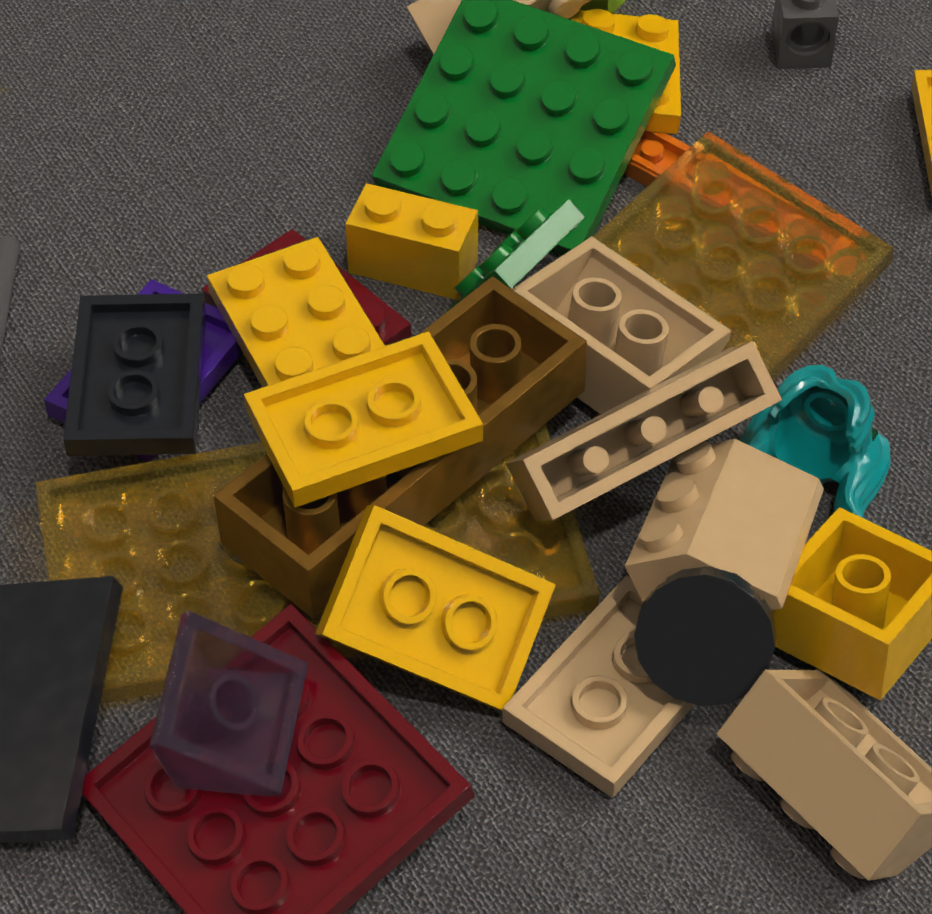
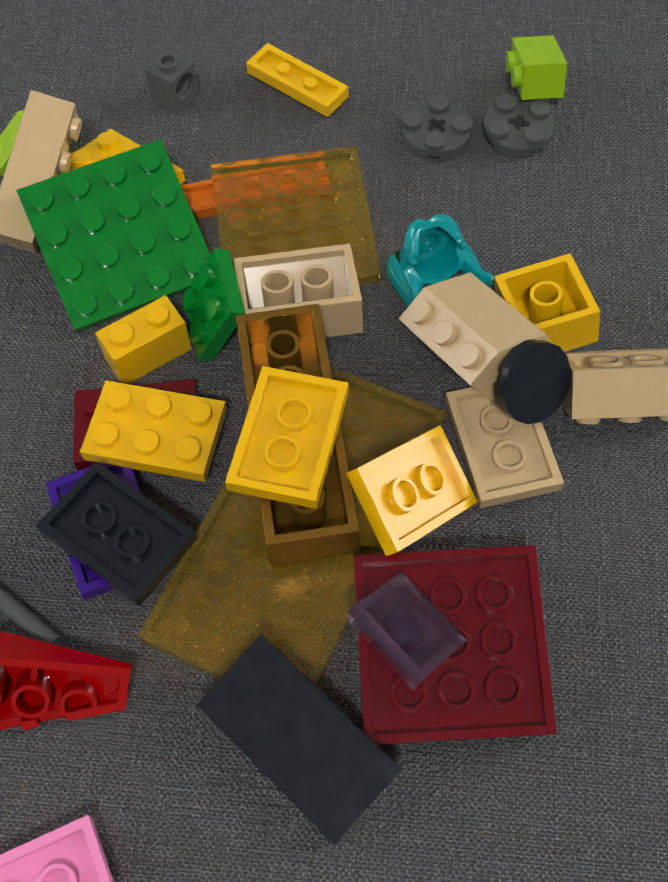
camera: 50 degrees left, 10 degrees up
(643, 432) = (389, 322): tan brick -> none

